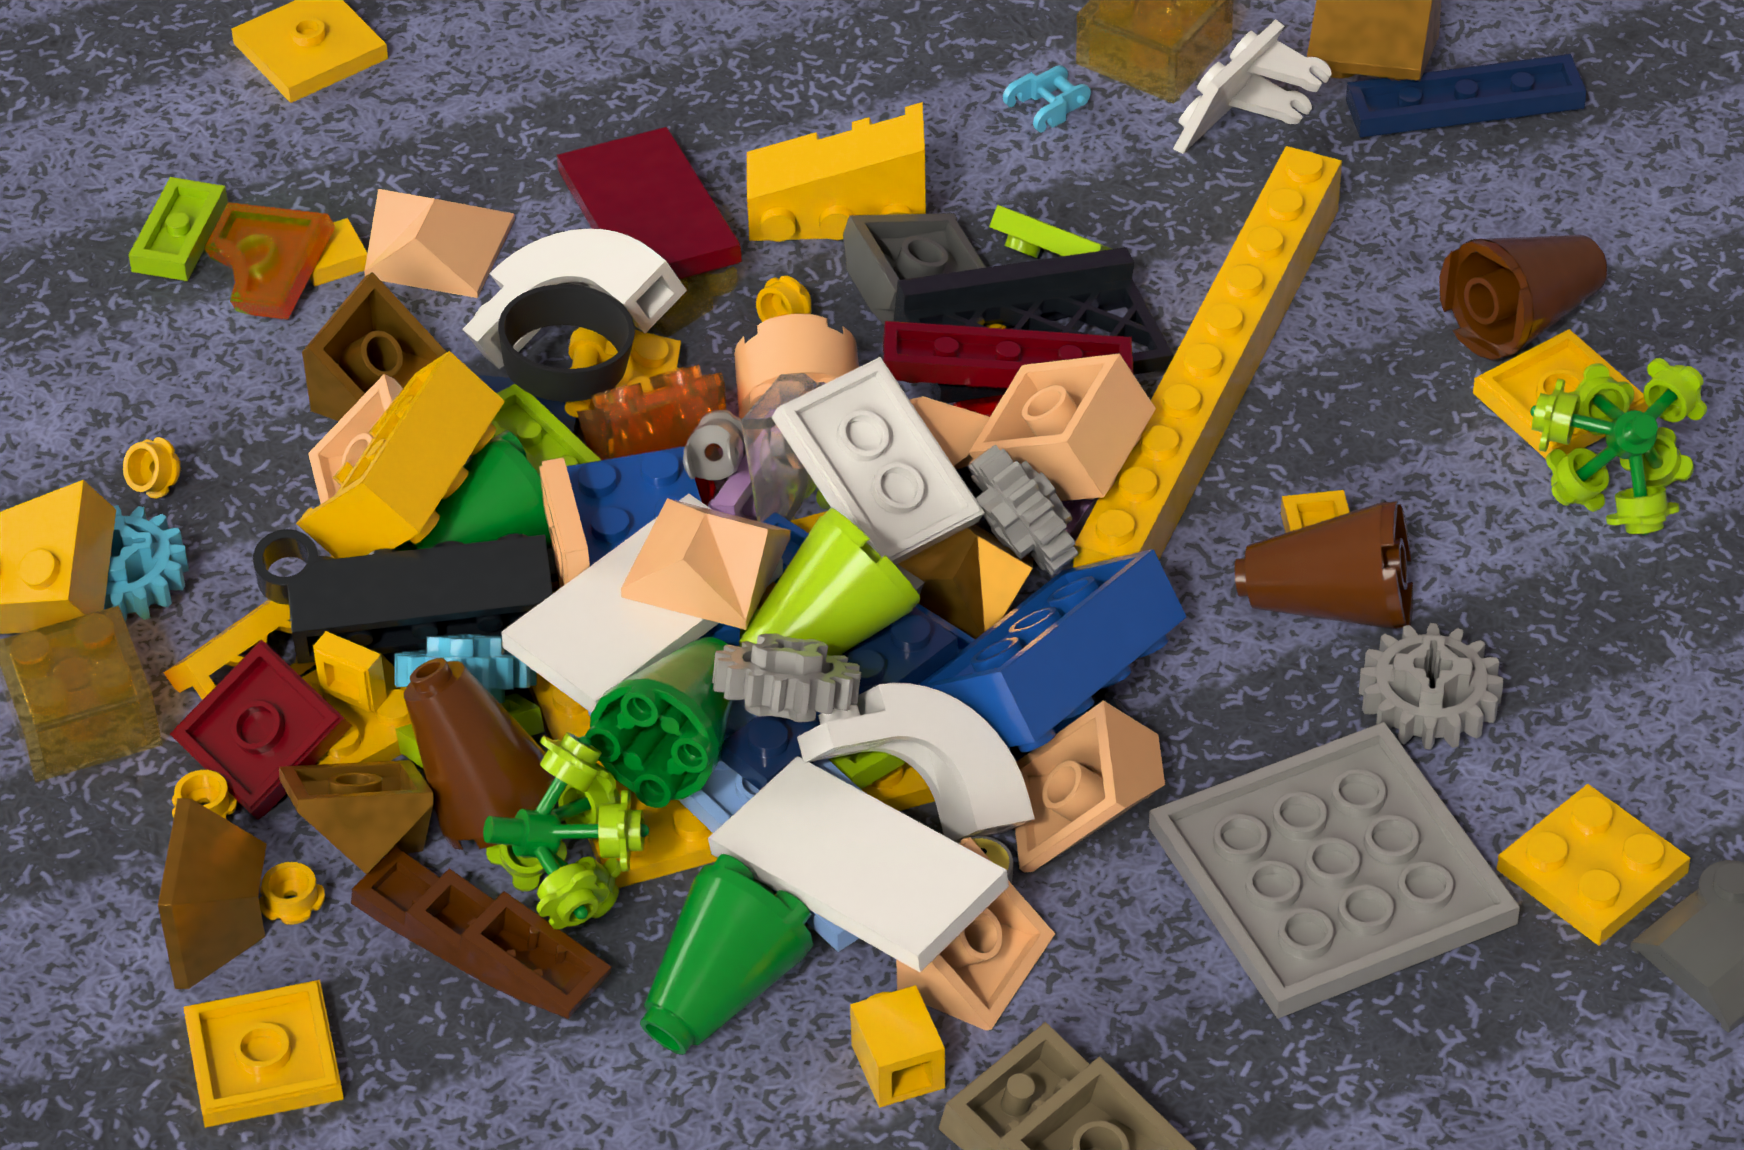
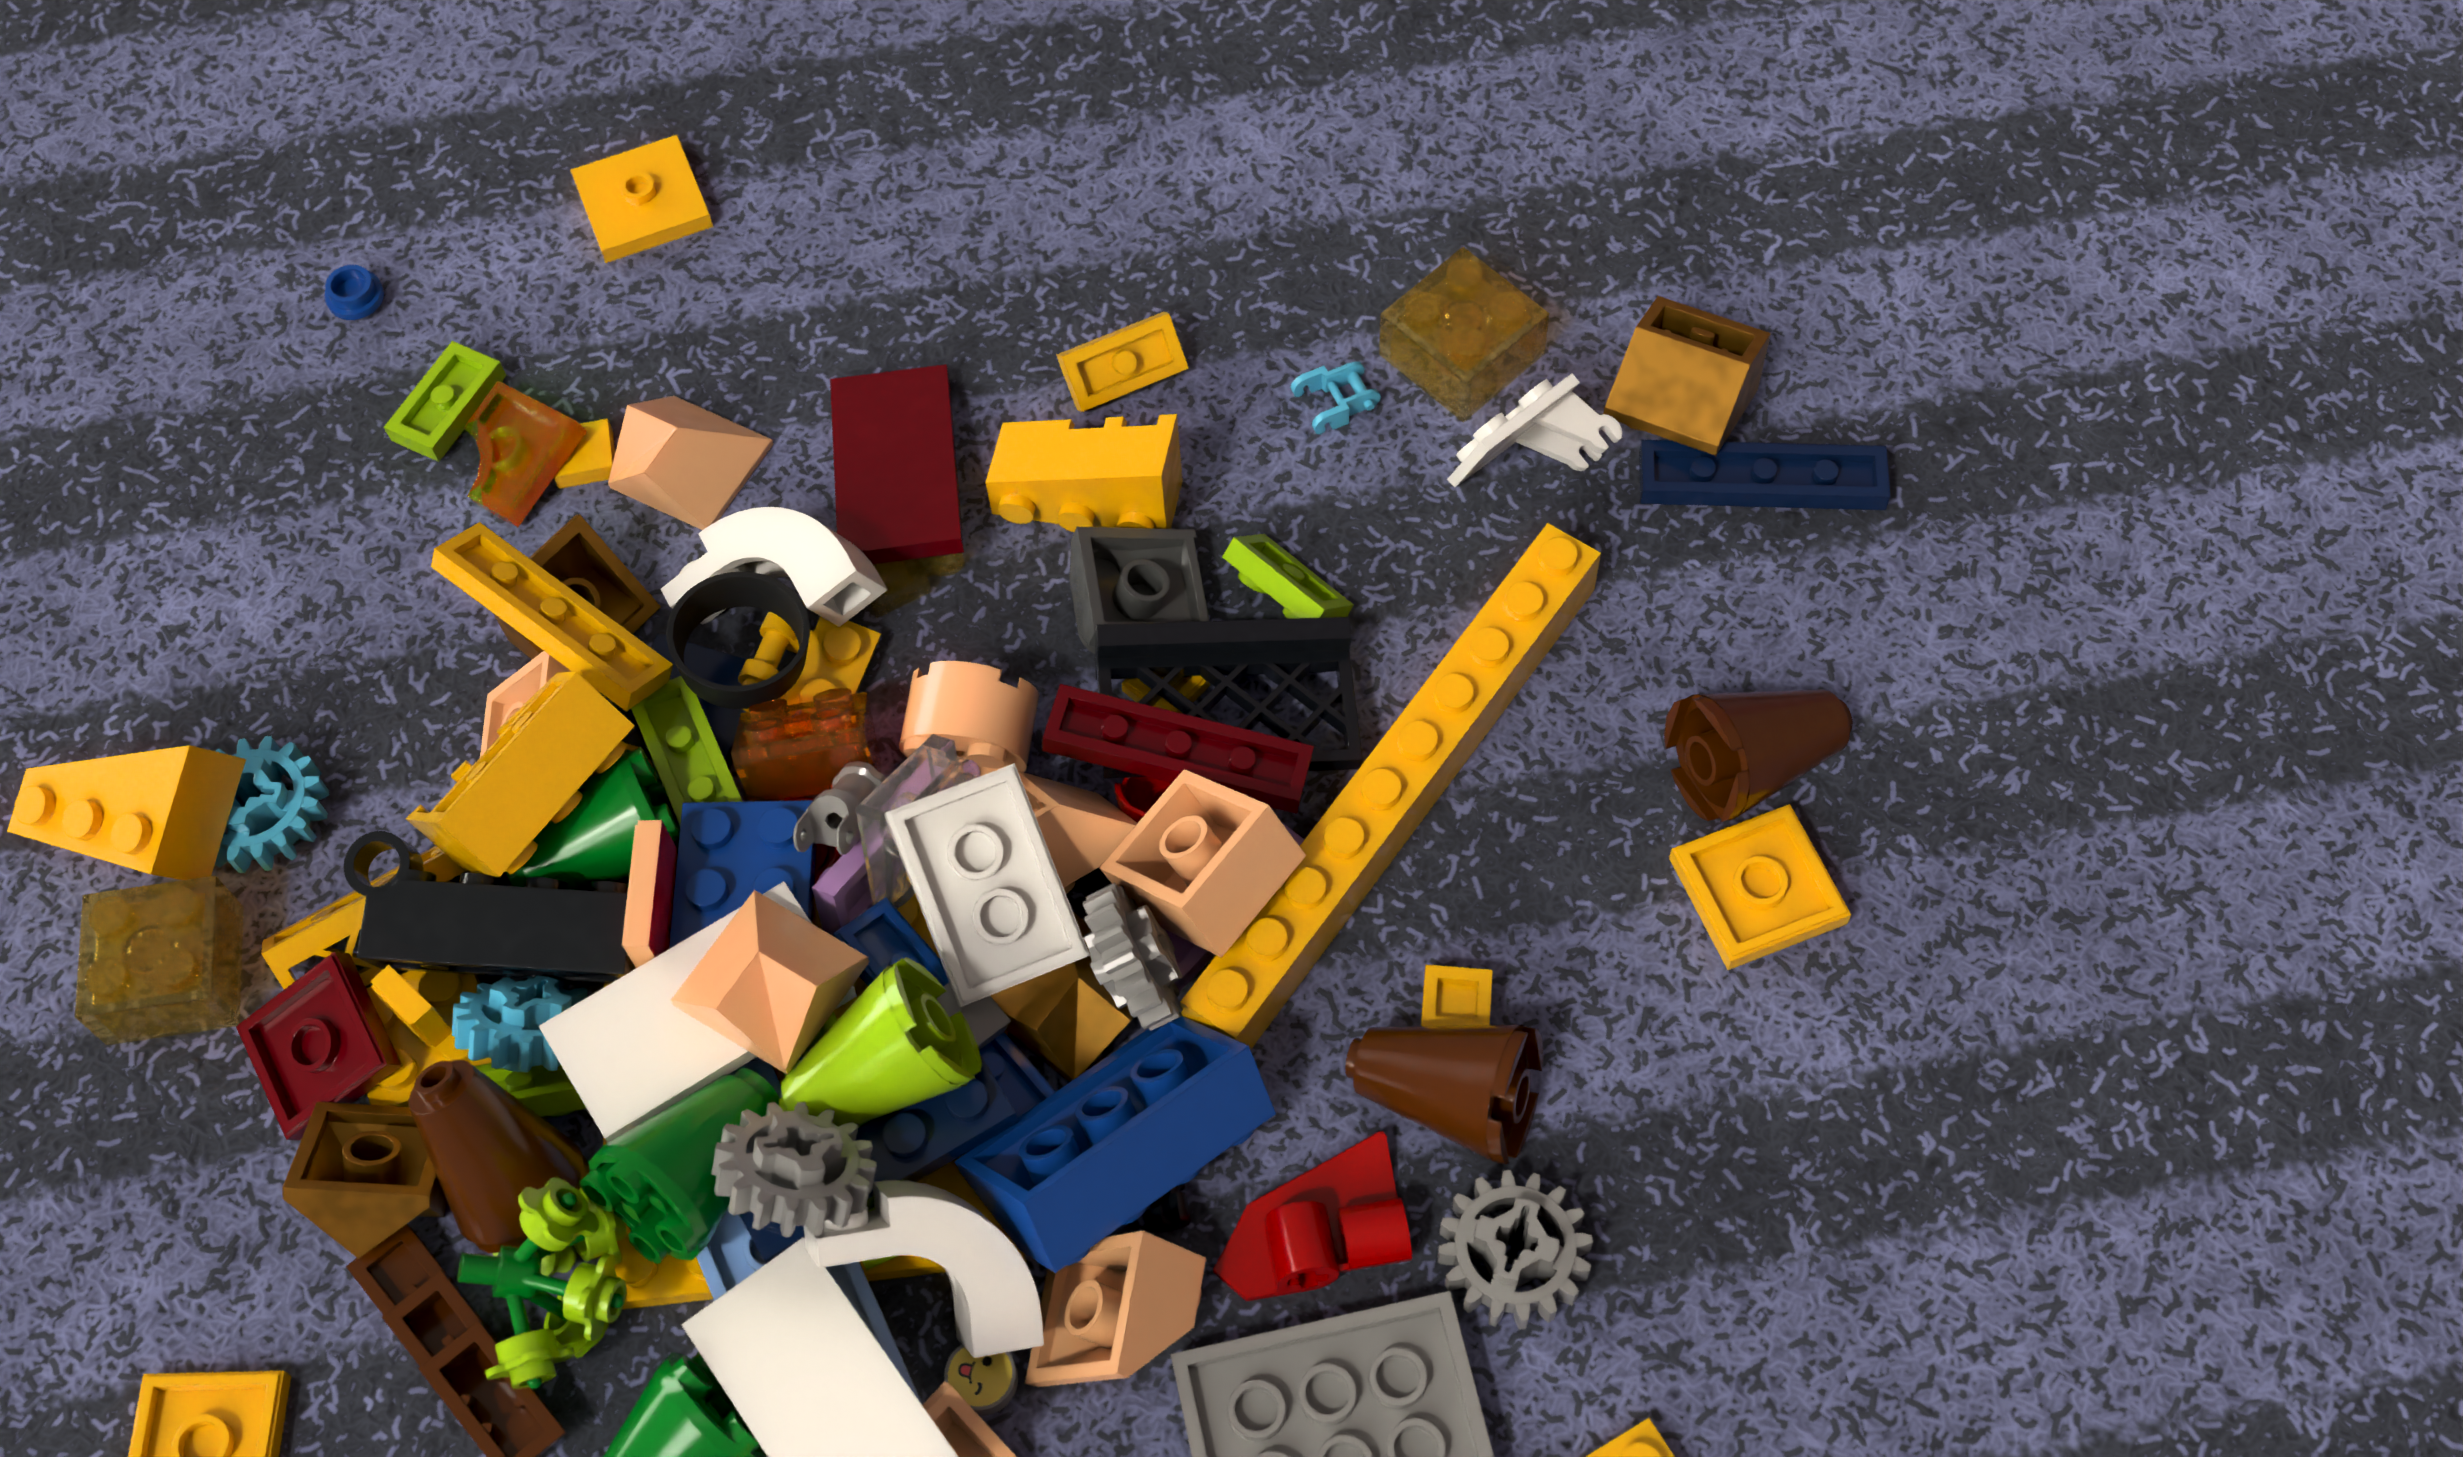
camera: 15 degrees right, 15 degrees up
(47, 158) = (353, 292): none -> blue plate
(151, 467) = (327, 688): yellow plate -> none
(206, 787) = (231, 1107): yellow plate -> none
(209, 893) = (183, 1255): pearl gold slope -> none
(290, 880) = (276, 1244): yellow plate -> none
(362, 336) = (552, 615): none -> yellow plate
(782, 297) = (996, 607): yellow plate -> none
(838, 96) = (1122, 361): none -> yellow plate
(1250, 707) = (1319, 1226): none -> red panel
(1633, 436) = (1820, 995): lime plant -> none

